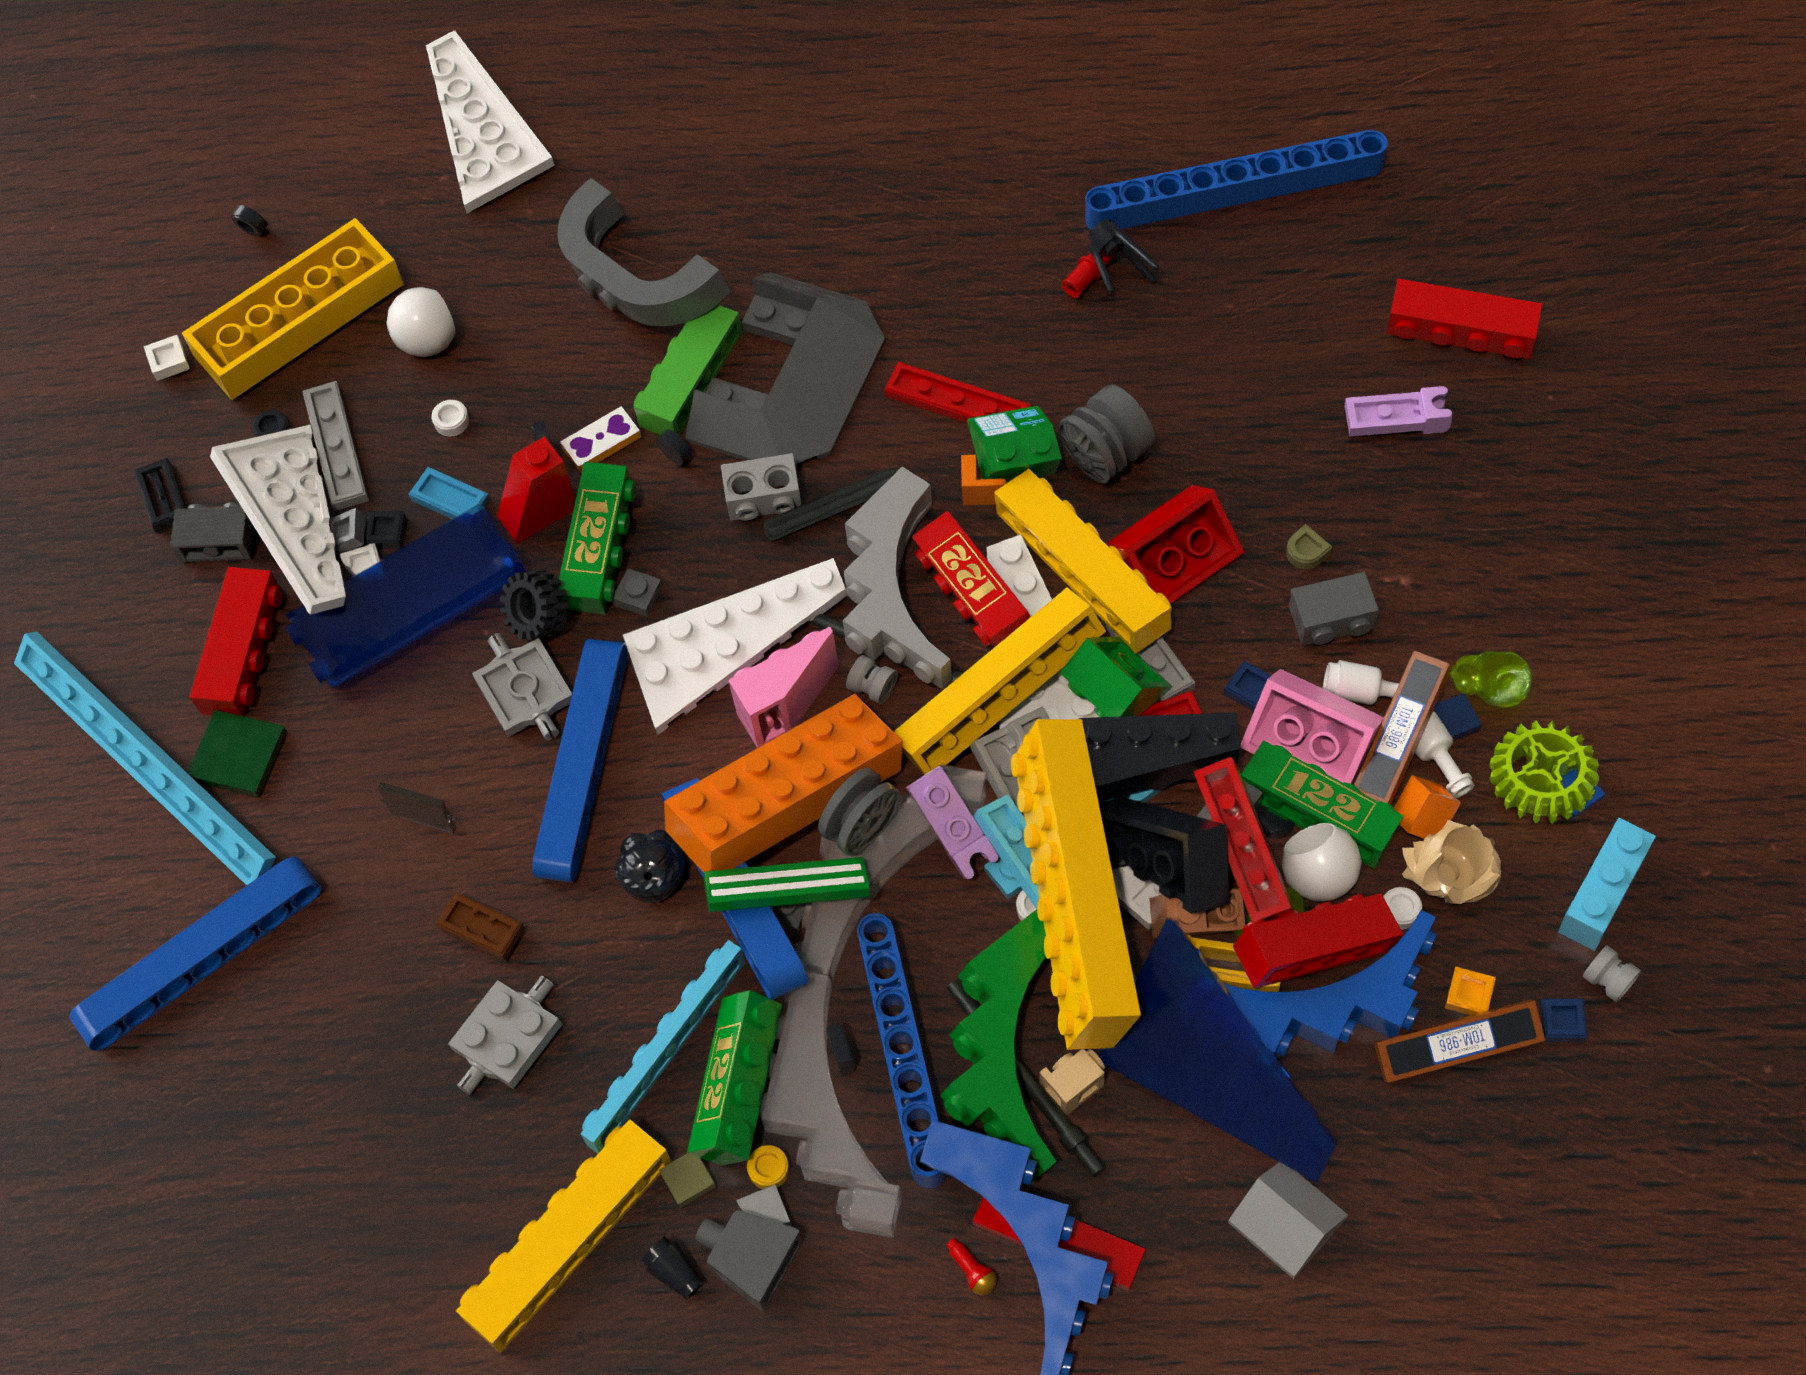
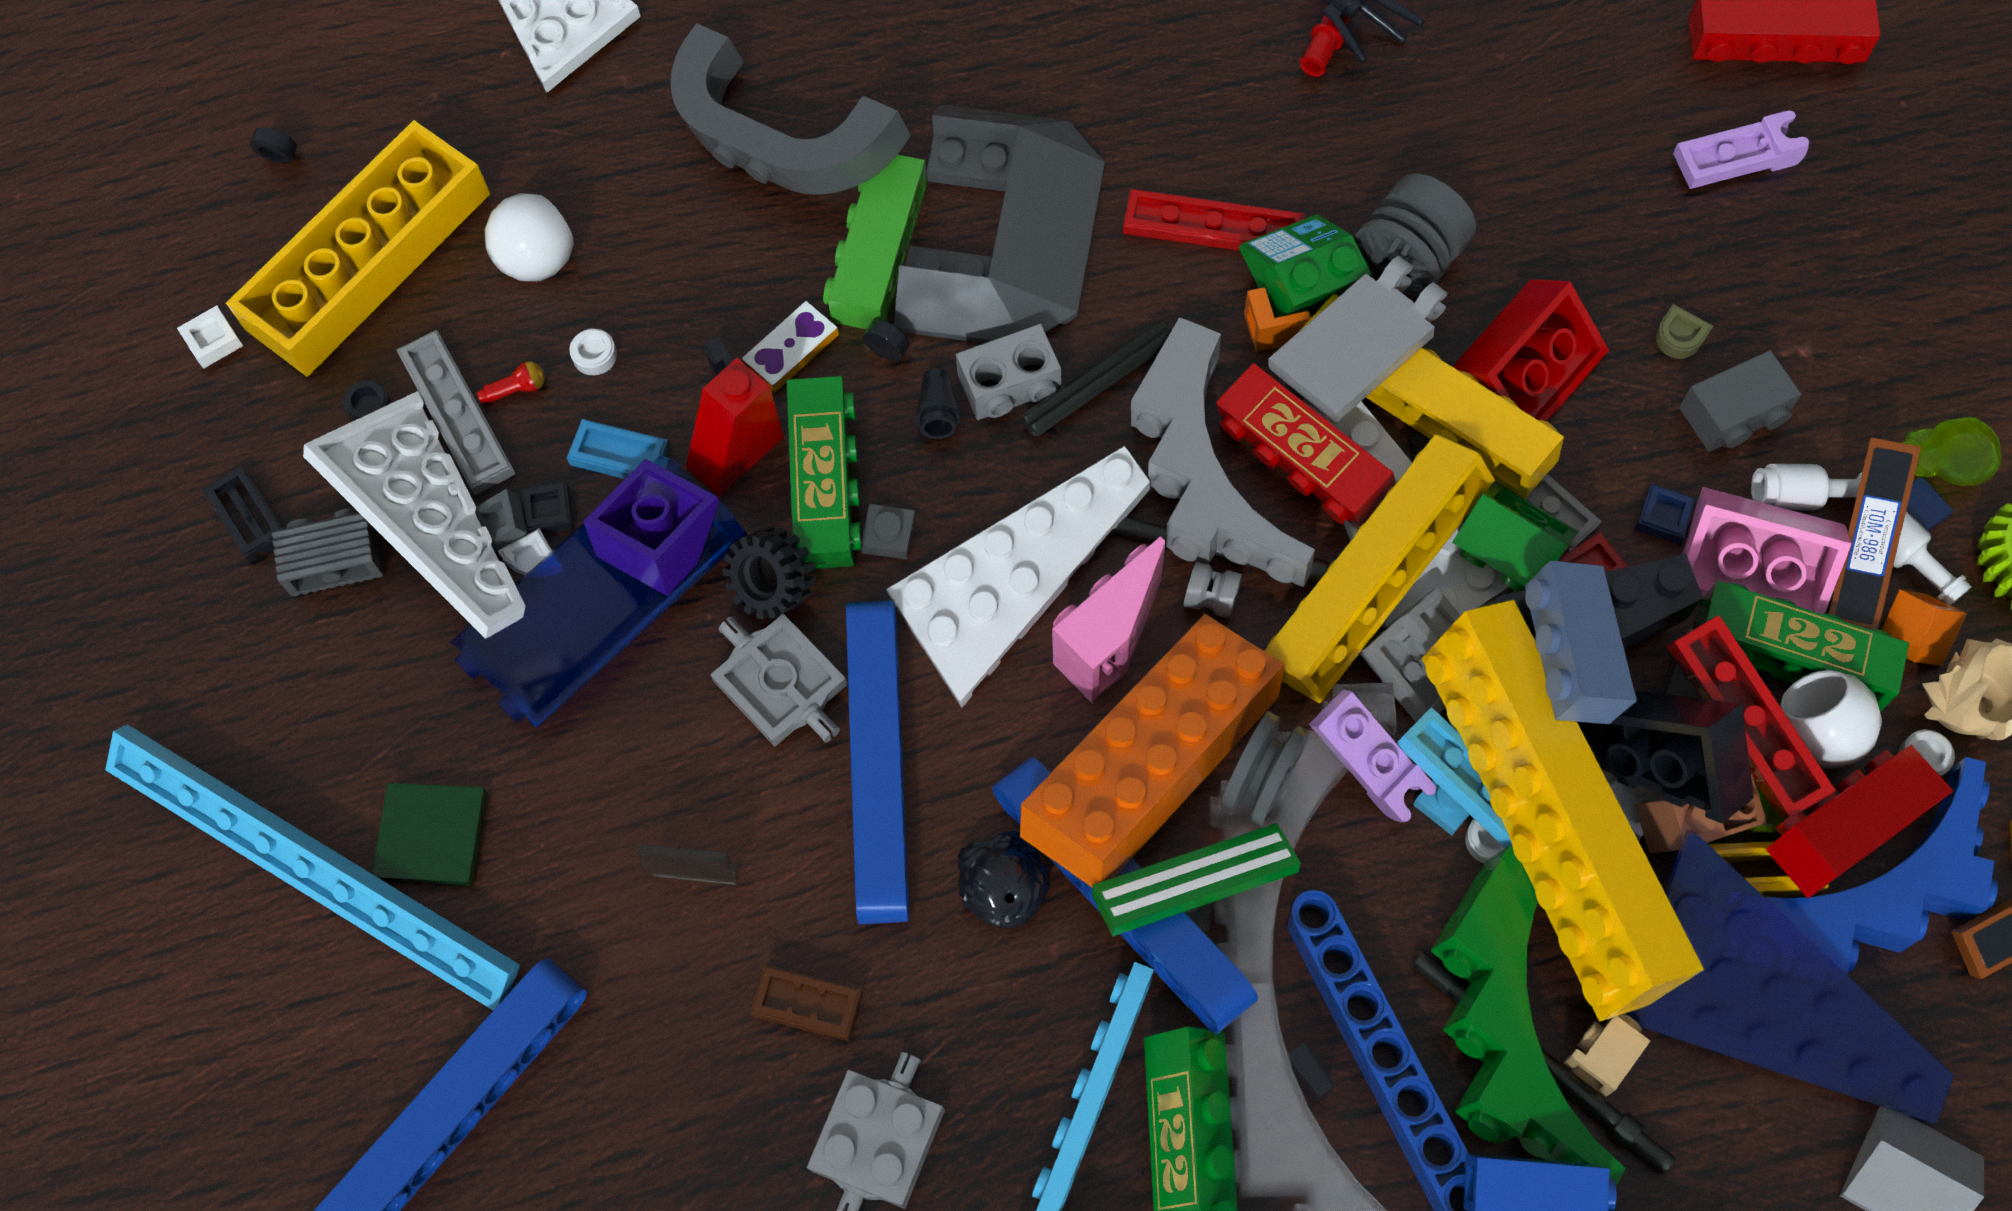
camera: 15 degrees left, 5 degrees up
(236, 641) = (394, 689): red brick -> none
(395, 429) = (526, 377): none -> red piece
(454, 554) = (653, 526): none -> dark purple slope
(699, 504) = (937, 406): none -> black cone
(1034, 506) = (1358, 340): none -> light grey tile
(1117, 758) = (1579, 643): none -> sand blue brick

